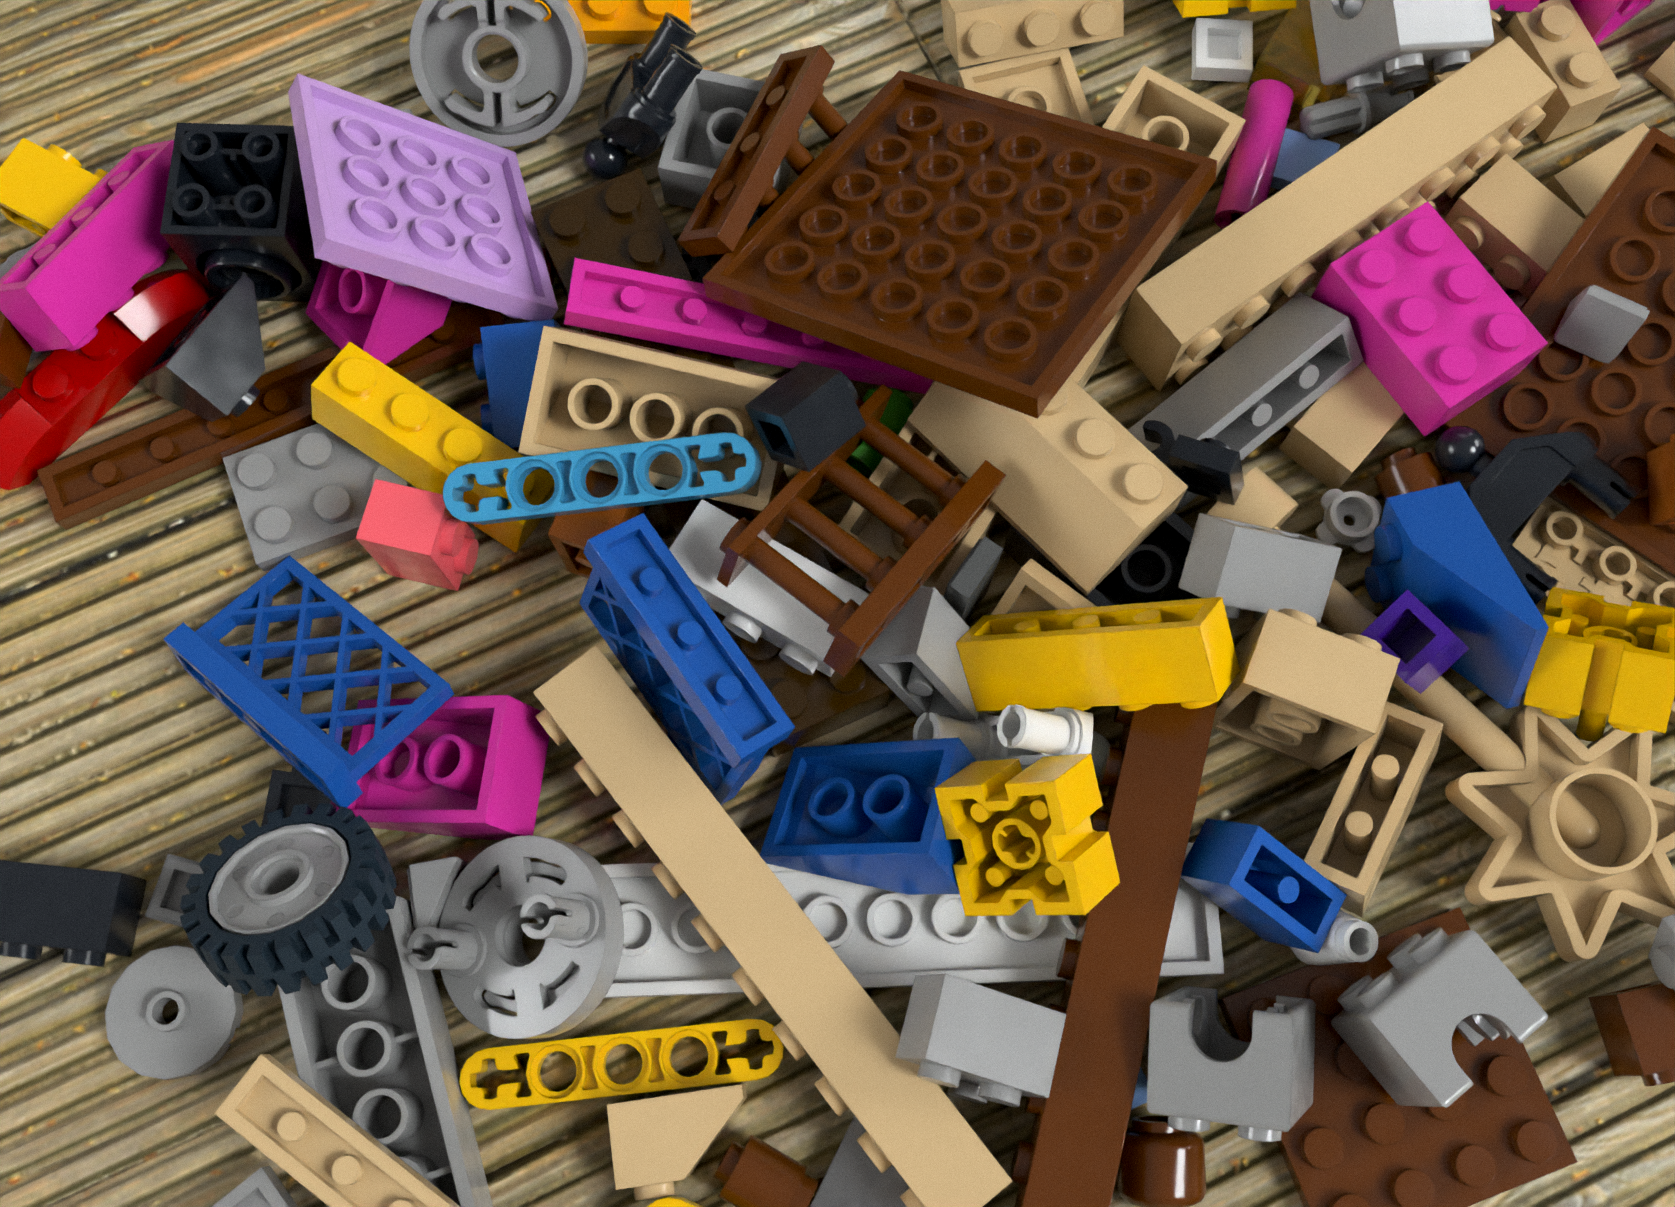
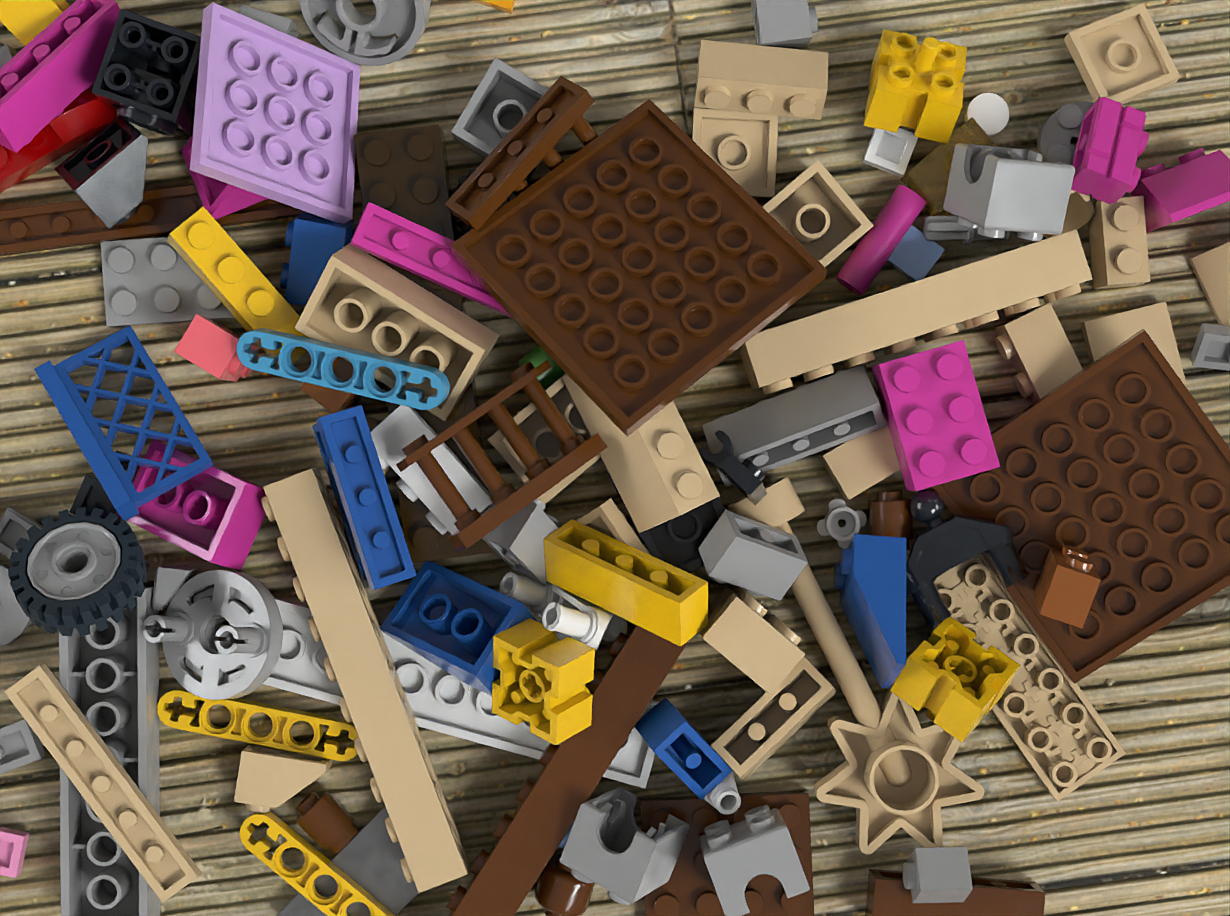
camera: 15 degrees right, 15 degrees up
(642, 100) = (457, 66): black connector -> none
(806, 415) = (485, 377): black brick -> none
(973, 578) = (567, 499): dark grey tile -> none
(980, 1040) = (474, 788): light grey brick -> none
(1418, 639) = (830, 635): dark purple brick -> none
(1599, 323) = (1048, 456): light grey slope -> none

